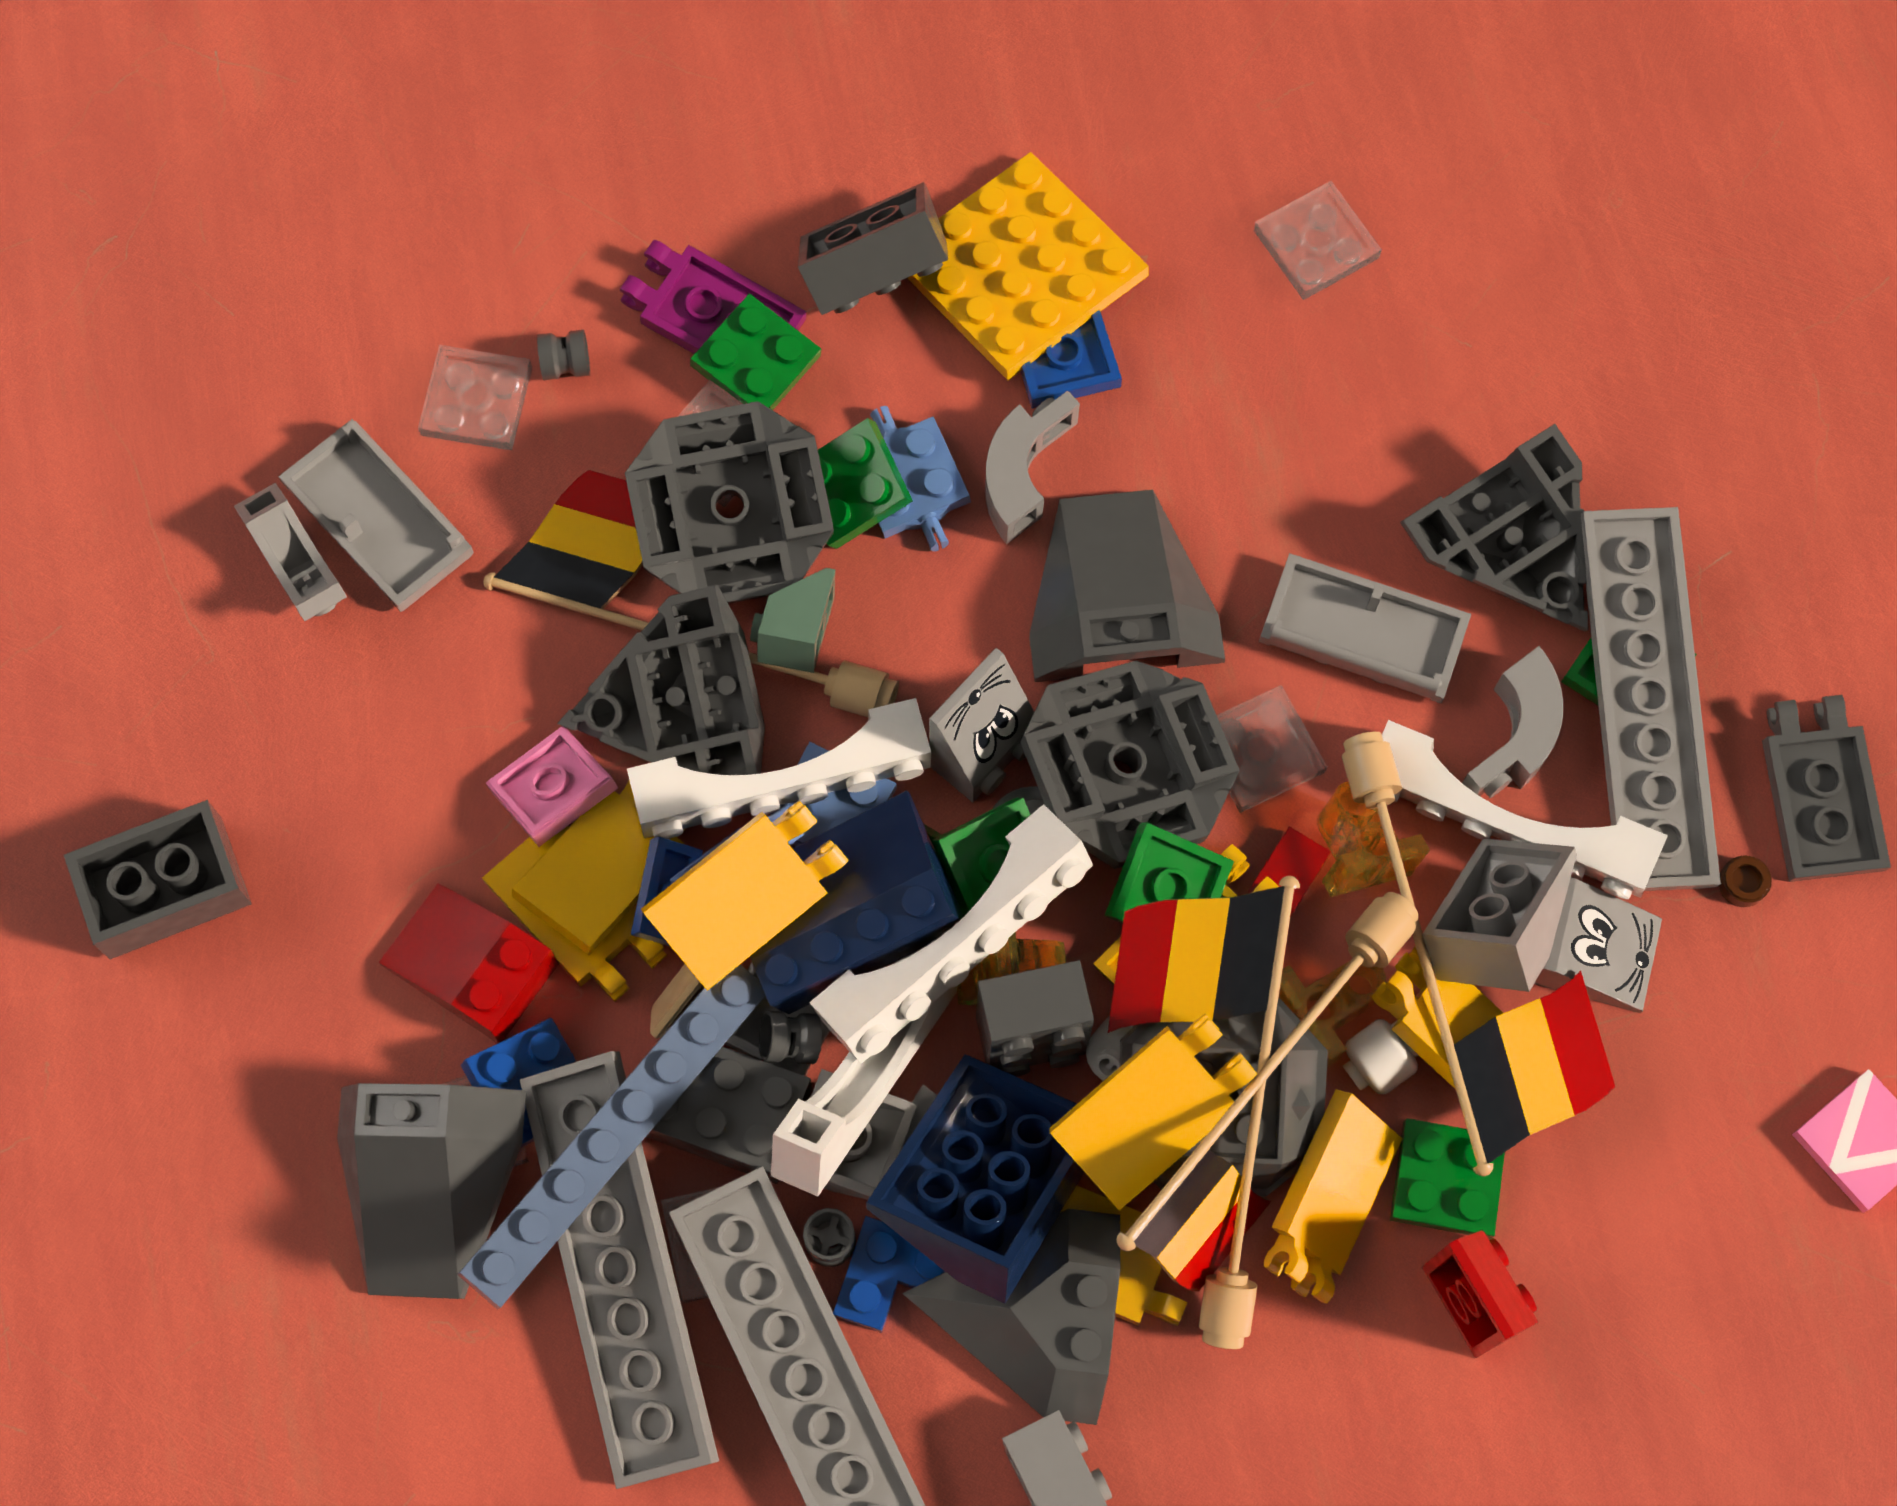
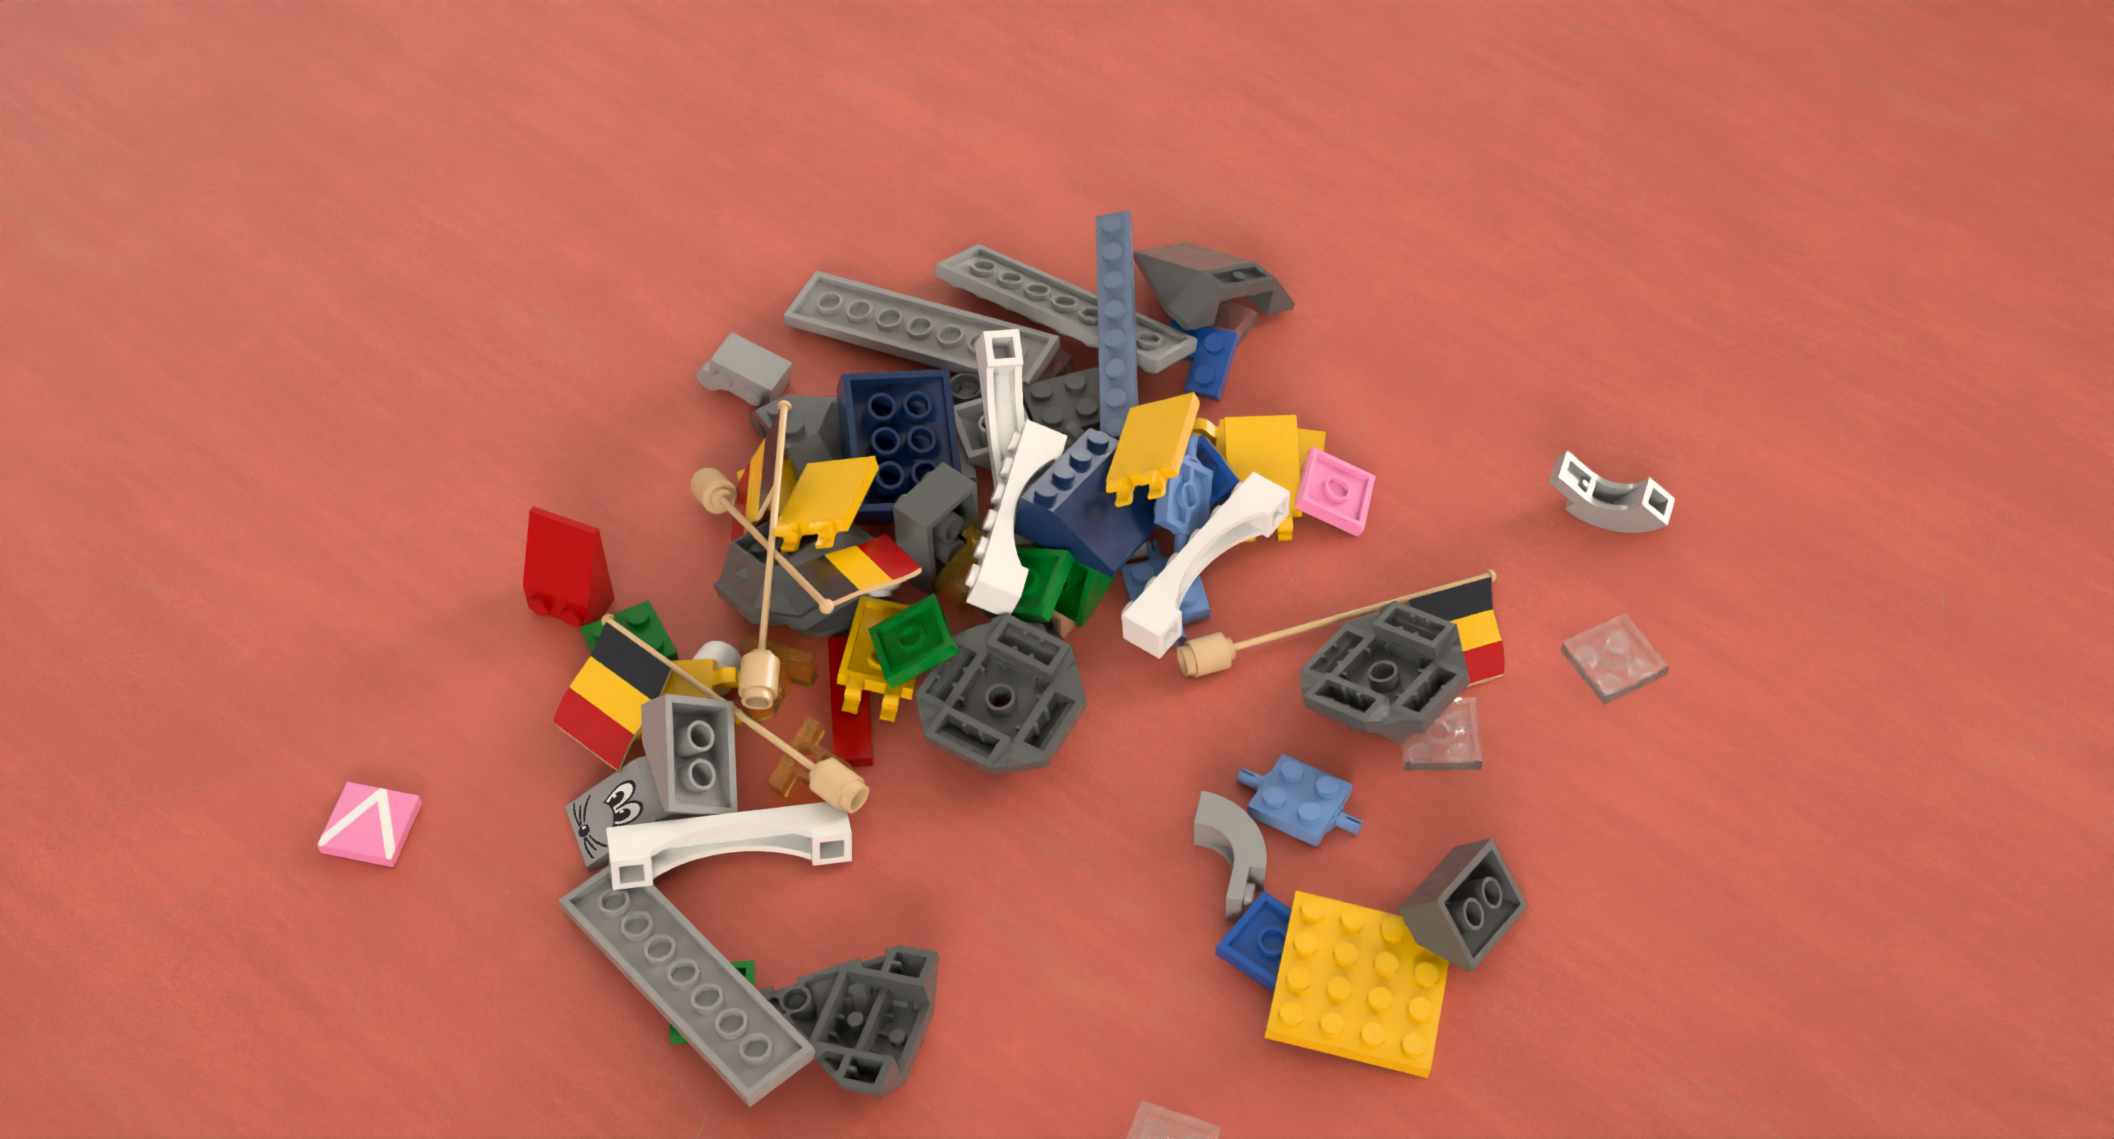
camera: 145 degrees right, 20 degrees down
(157, 879) = (1491, 314): dark grey brick -> none
(377, 514) = (1595, 557): light grey container -> none
(470, 962) = (1290, 385): red slope -> none
(563, 355) = (1593, 712): dark grey wheel -> none
(681, 691) = (1299, 574): dark grey wedge -> none
(695, 296) = (1531, 810): magenta tile -> none
(755, 355) = (1468, 793): green plate -> none
(795, 622) = (1278, 654): sand green slope -> none
(860, 482) = (1328, 760): green plate -> none
(980, 728) = (1106, 661): light grey slope -> none
(1119, 590) = (1093, 818): dark grey wedge -> none
(1269, 748) = (928, 796): clear plate -> none
(1331, 1195) = (692, 575): yellow tile -> none
(1365, 627) = (915, 902): light grey container -> none
(1536, 715) = (763, 931): light grey arch -> none
(1745, 881) = (543, 925): reddish brown tile -> none
(1824, 794) = (520, 1012): dark grey tile -> none

